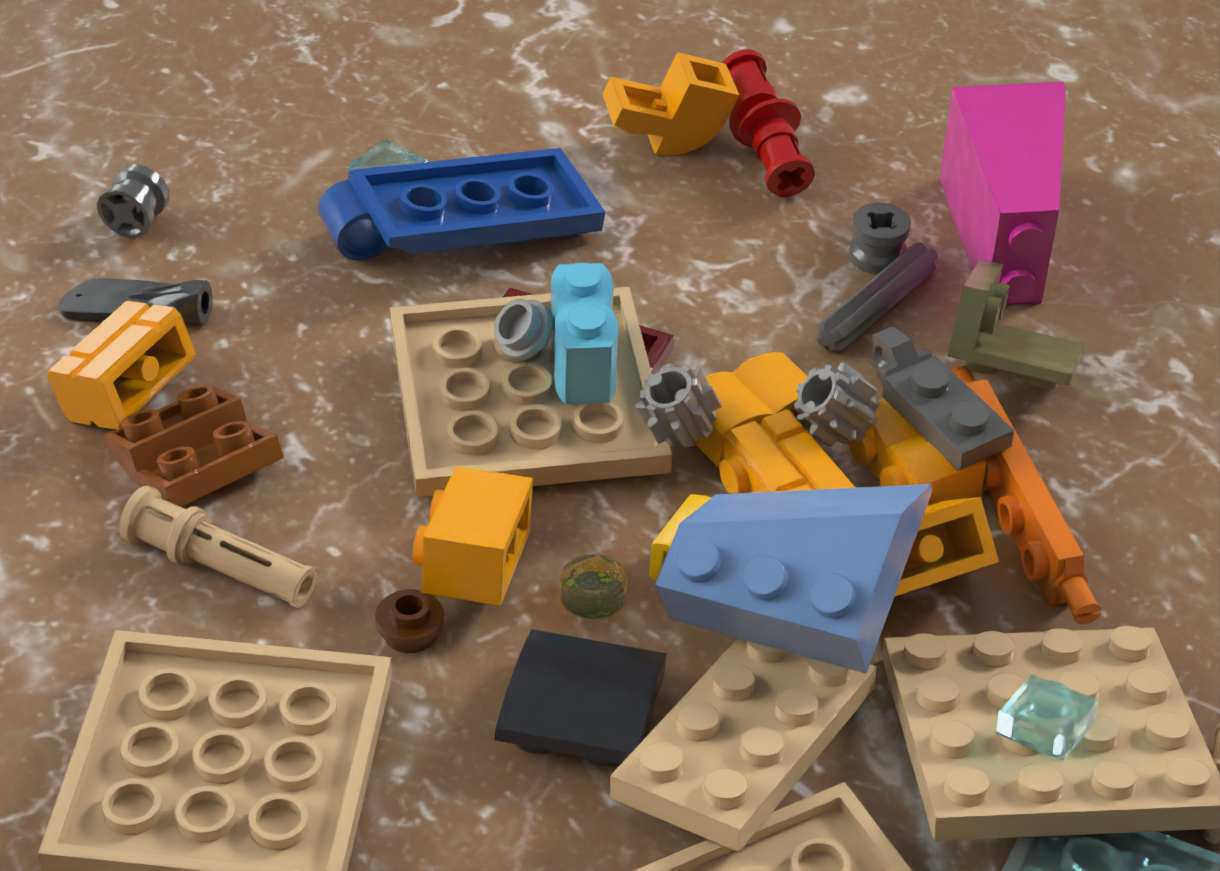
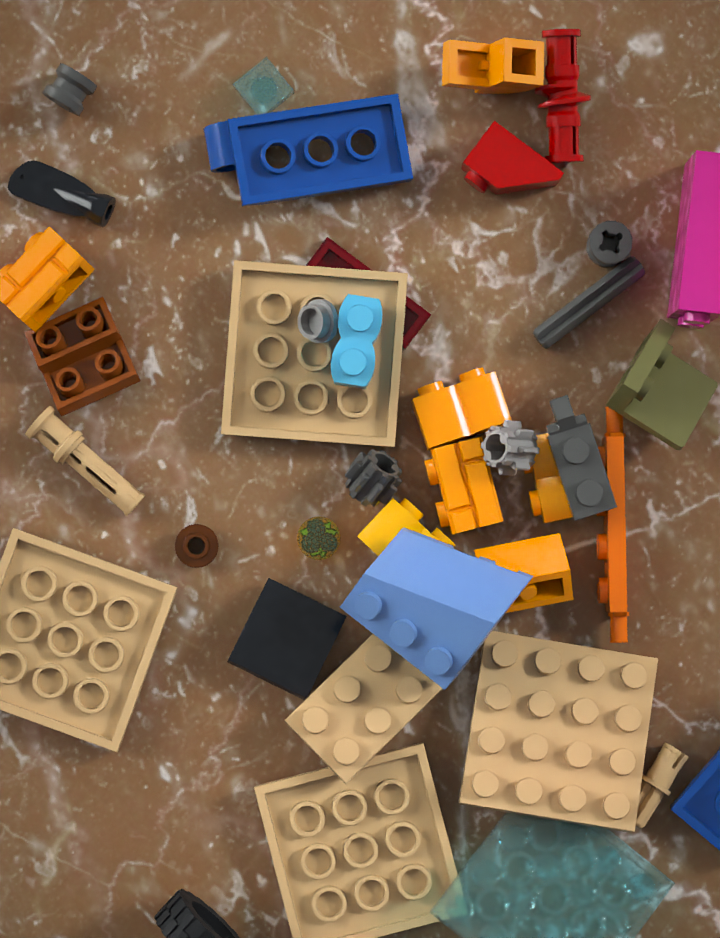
camera: 15 degrees right, 45 degrees up
(474, 535) = (248, 497): light orange brick -> none
(651, 487) = (373, 478): none -> dark grey gear
(678, 405) = (390, 431): light grey gear -> none
(726, 187) = (507, 164): none -> red slope
(1047, 716) = (549, 747): clear light blue plate -> none

